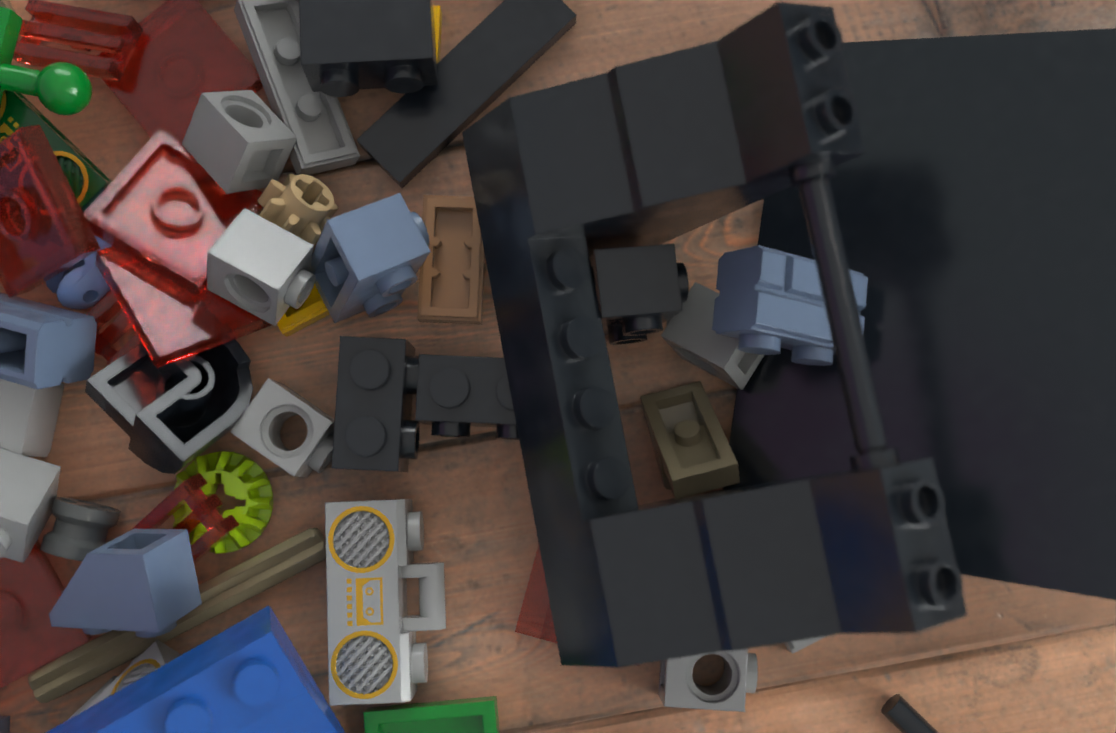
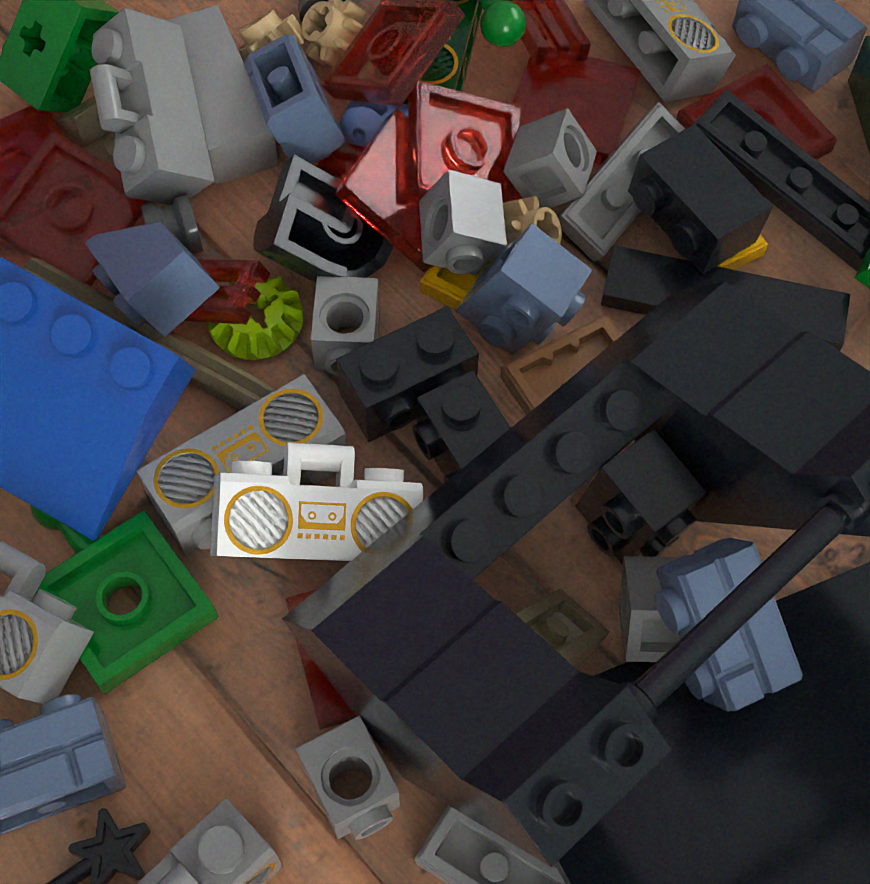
camera: 60 degrees right, 20 degrees down
(474, 581) = (286, 520): none -> white piece

